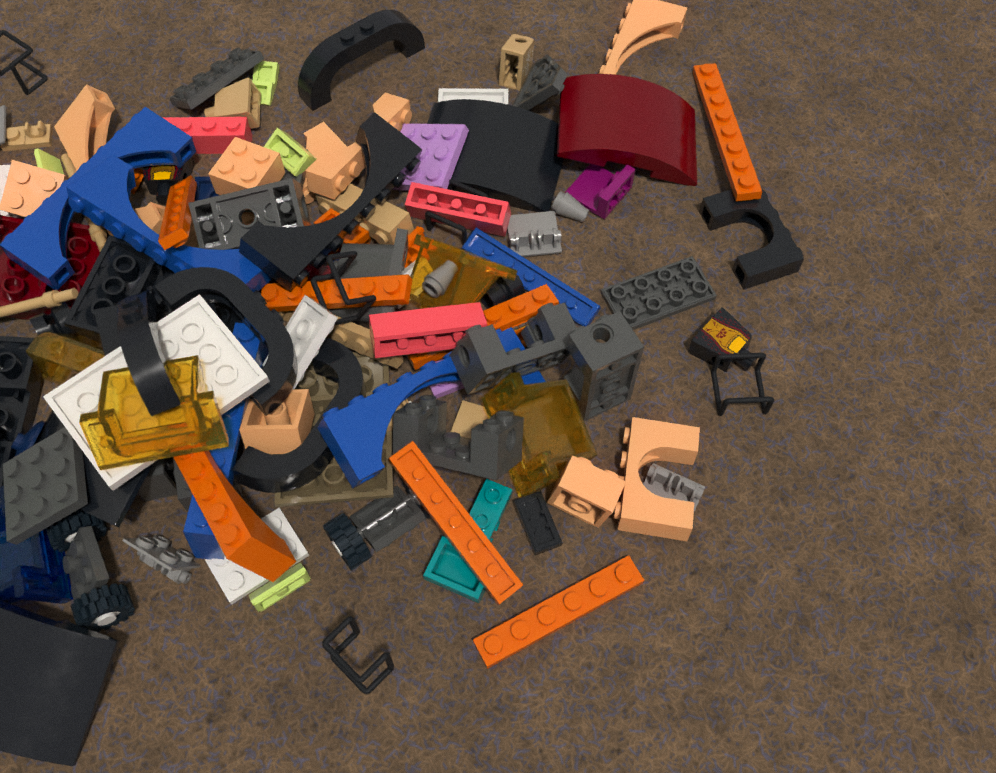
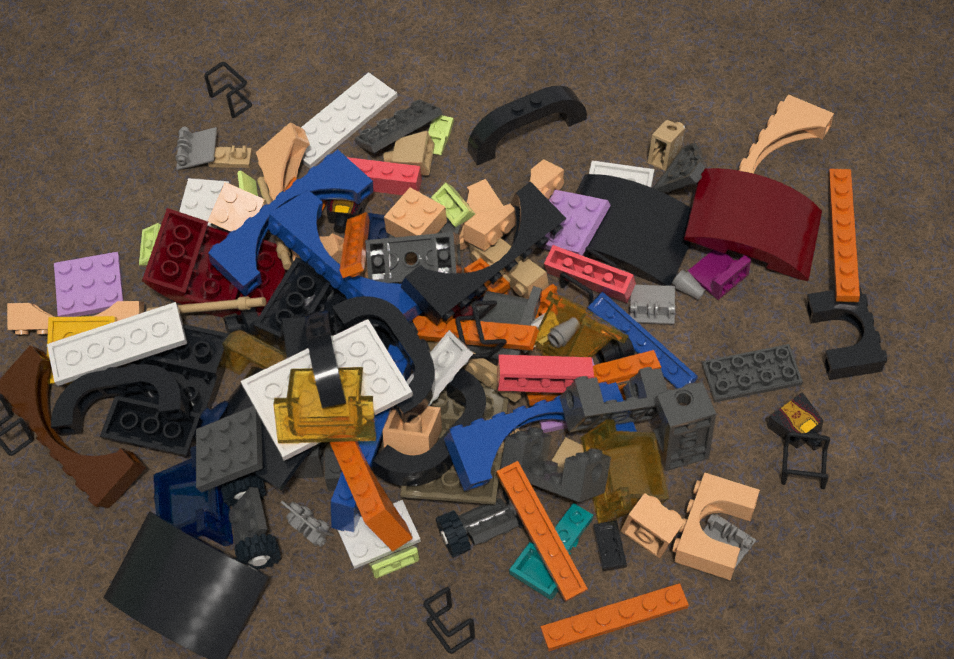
camera: 15 degrees right, 5 degrees down
(156, 76) = (345, 117): none -> white plate

